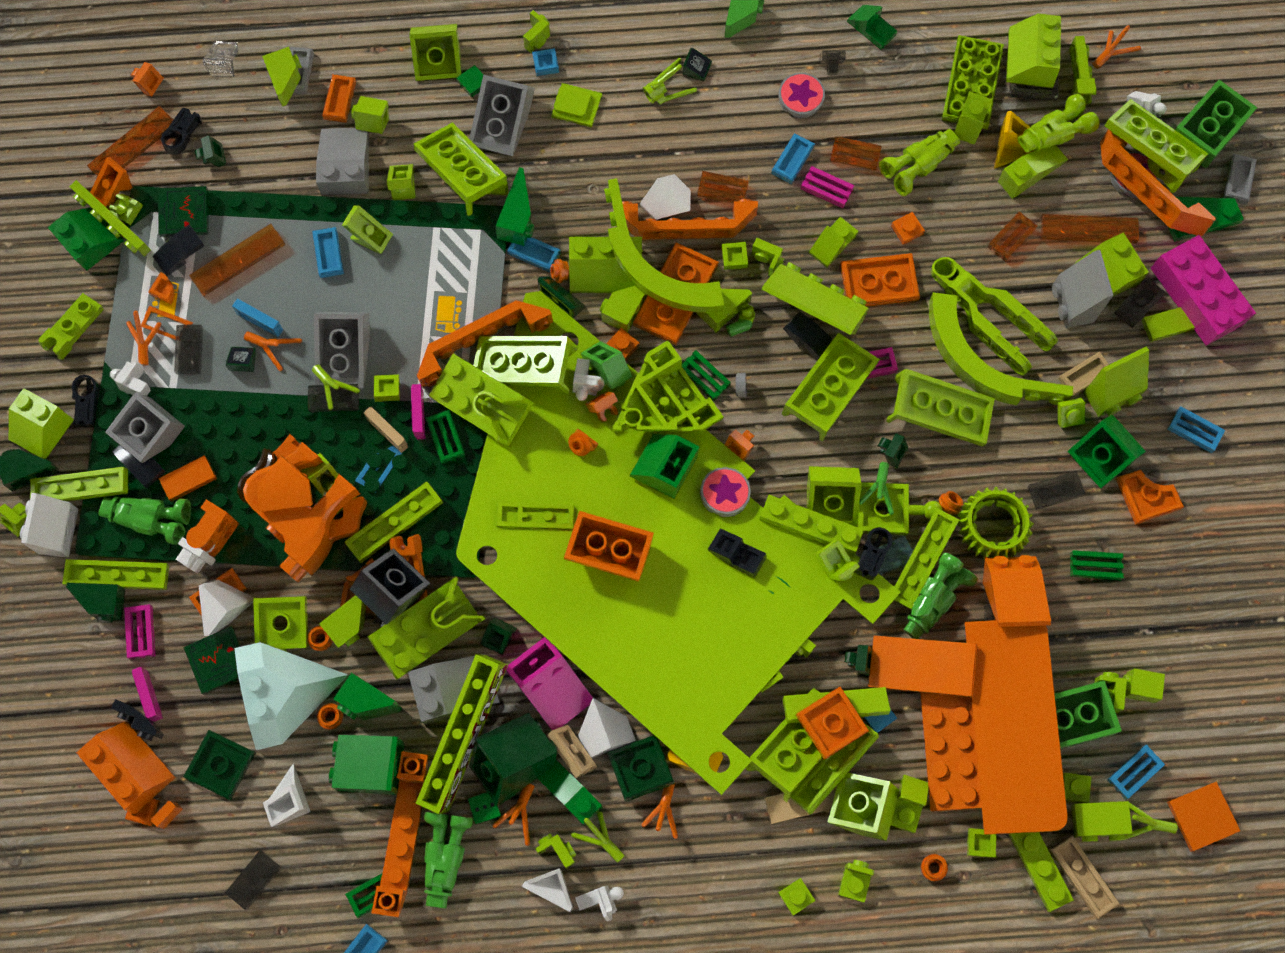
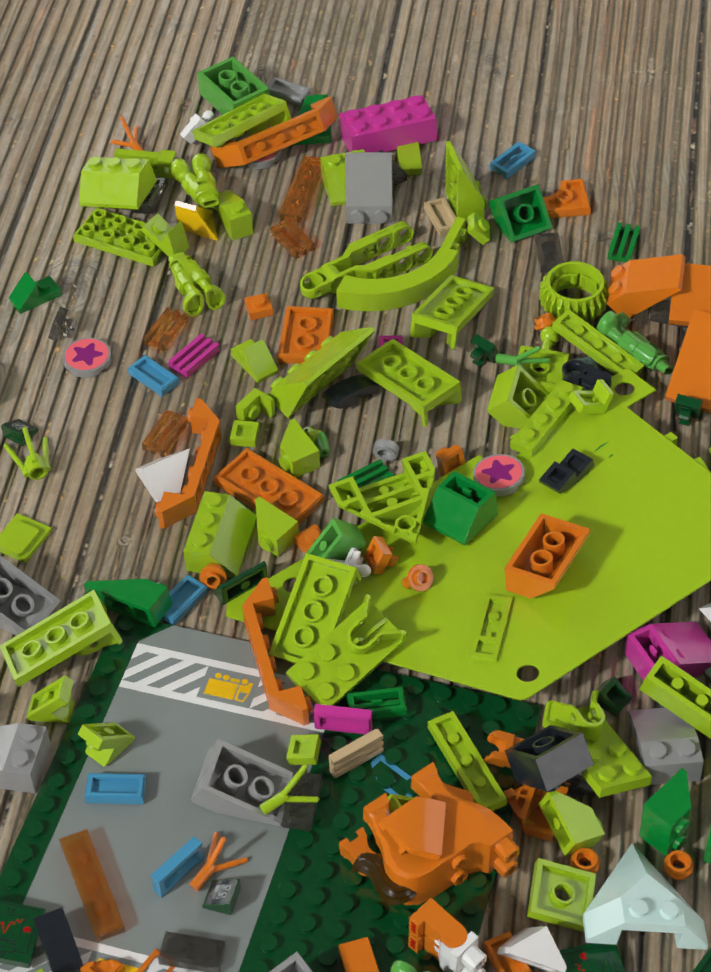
camera: 75 degrees left, 25 degrees down
(669, 291) = (237, 492): lime arch -> none

